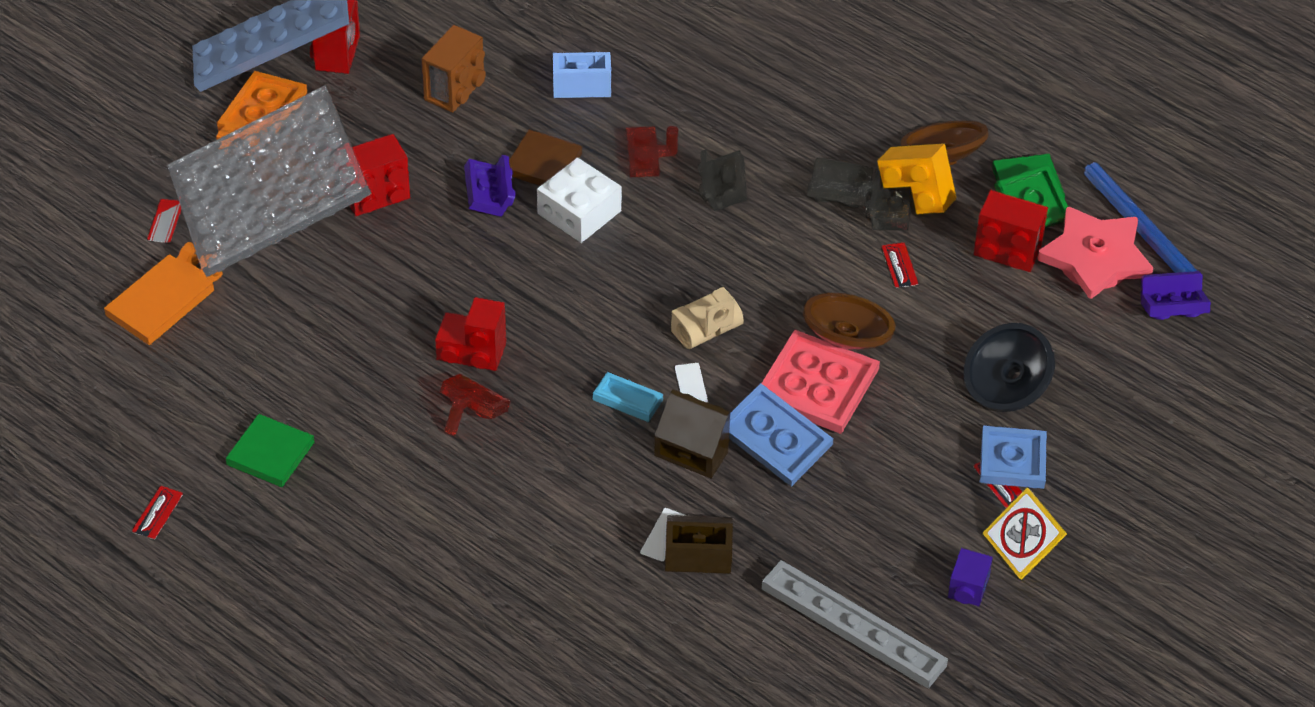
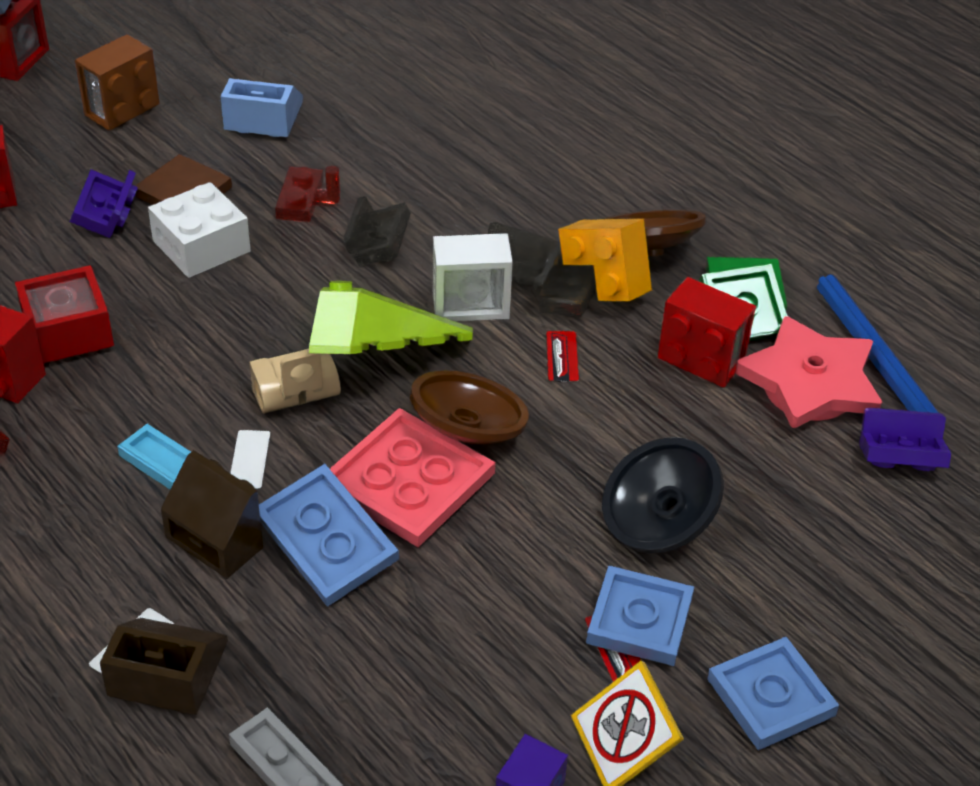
camera: 10 degrees right, 5 degrees down
(514, 283) = (66, 313): none -> red piece
(747, 265) = (354, 318): none -> lime slope
(817, 211) = (472, 277): none -> white piece
(1115, 495) = (772, 692): none -> medium blue plate

